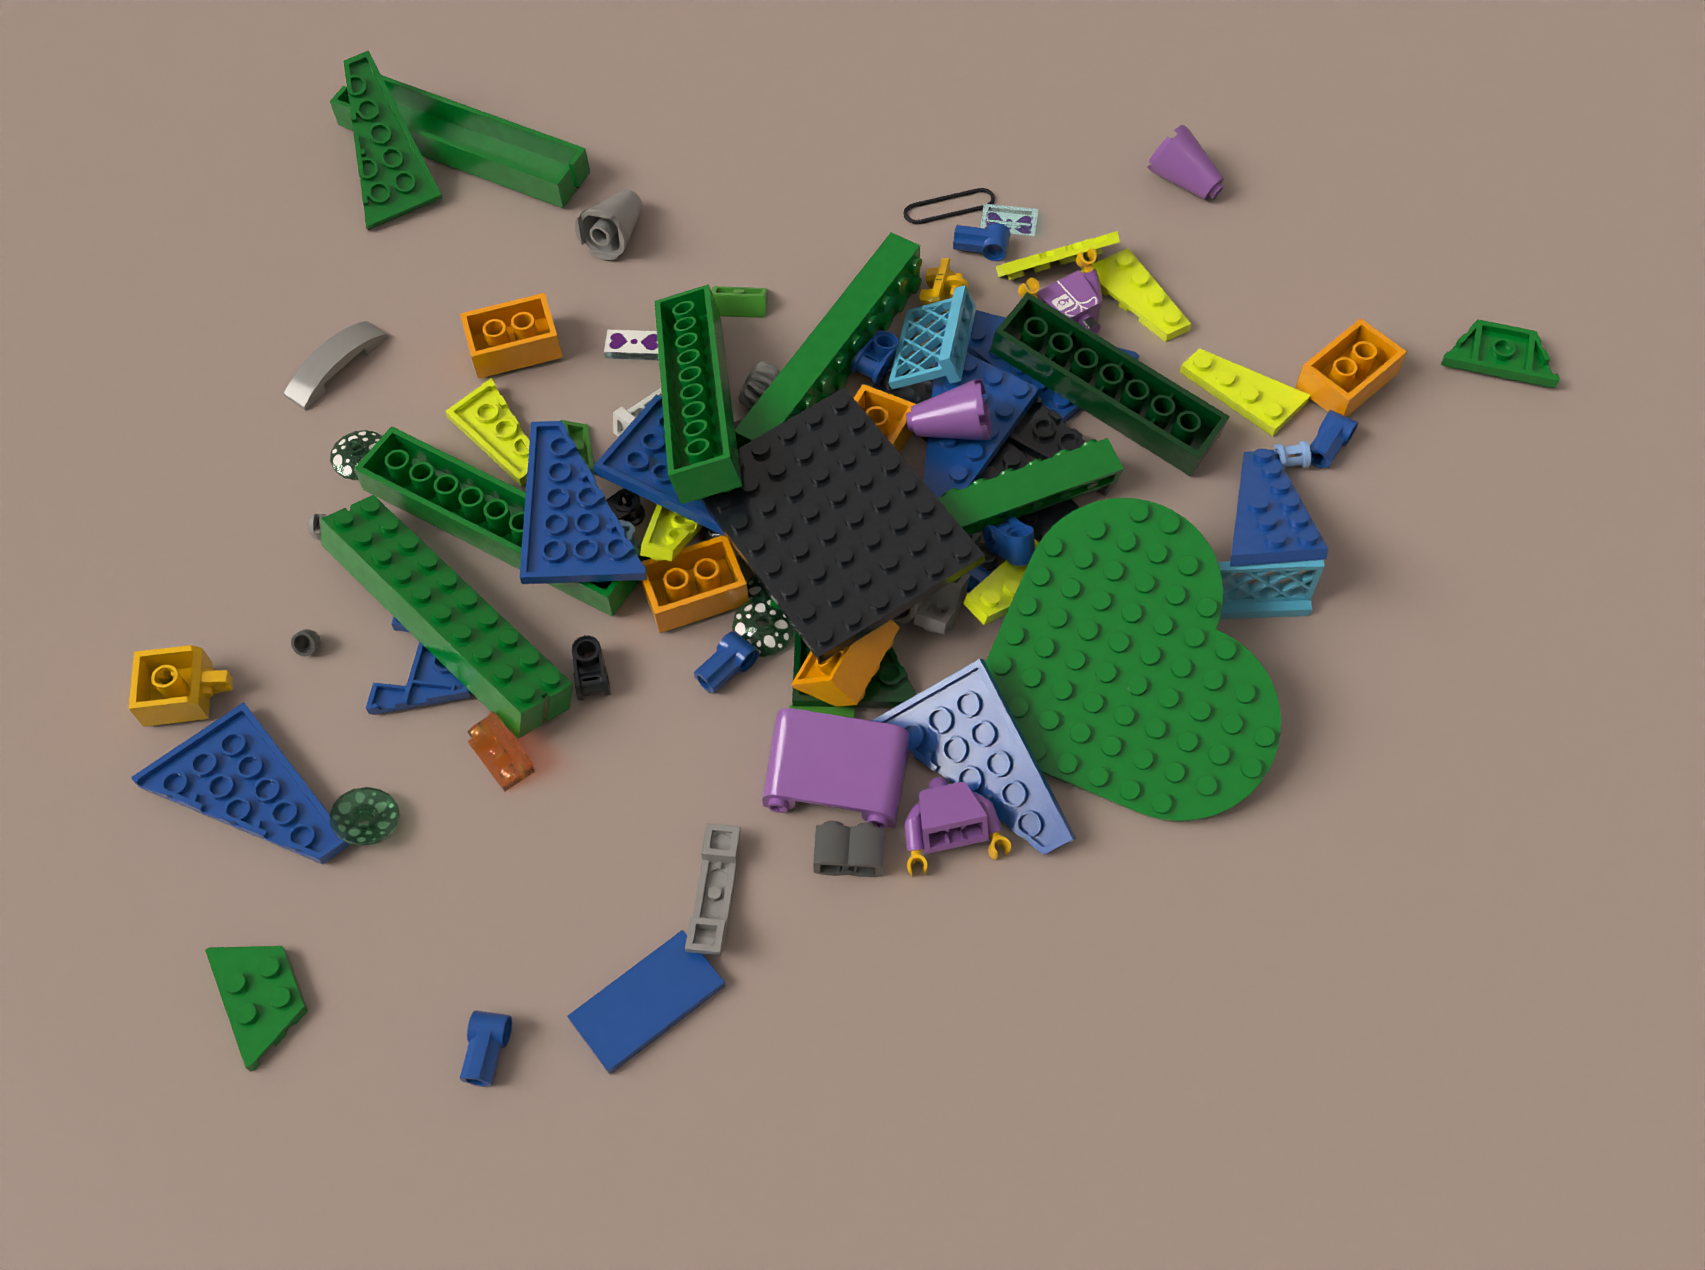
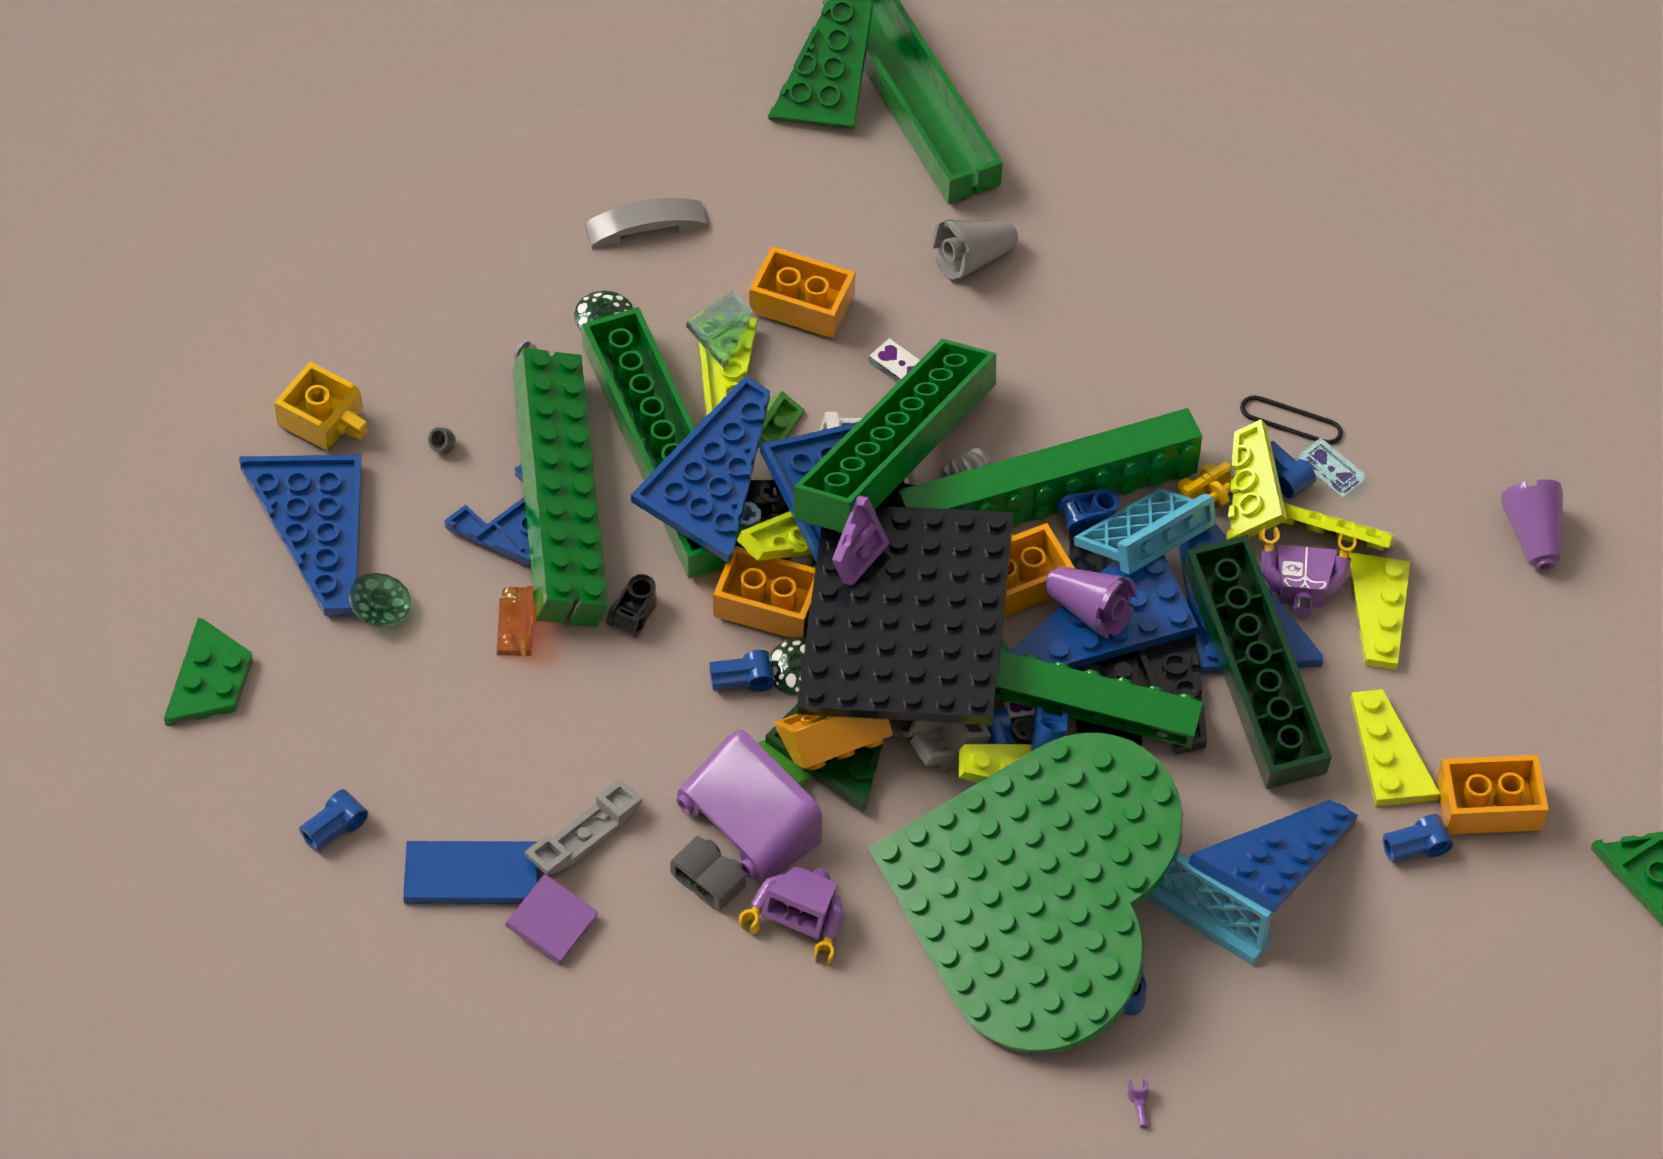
camera: 35 degrees right, 5 degrees down
(470, 400) = (721, 326): none -> clear light blue wing
(741, 301) = (1024, 385): bright green slope -> none
(754, 991) = (551, 919): none -> medium lavender tile
(755, 486) = (860, 542): none -> medium lavender wing
(972, 738) = (872, 859): wing -> none
(982, 262) = (1255, 485): none -> neon yellow wing
(1302, 453) = (1359, 821): light blue bush -> none
(1338, 783) = (1139, 1097): none -> medium lavender hand

